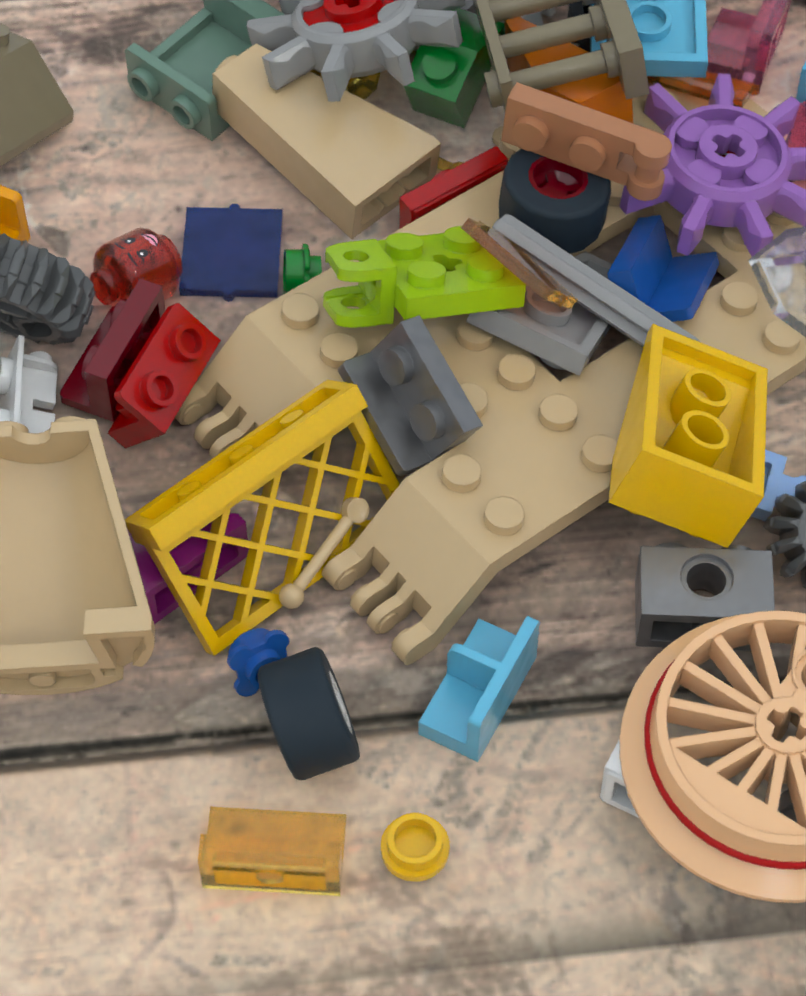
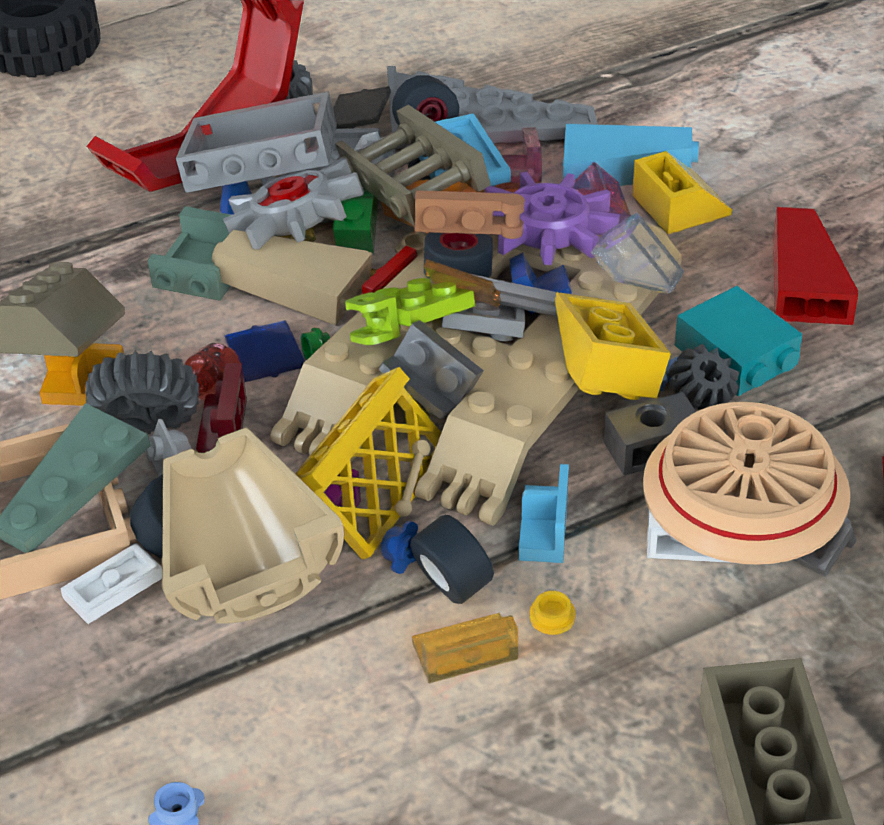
camera: 20 degrees left, 15 degrees down
(161, 376) = (266, 407): red bracket -> none

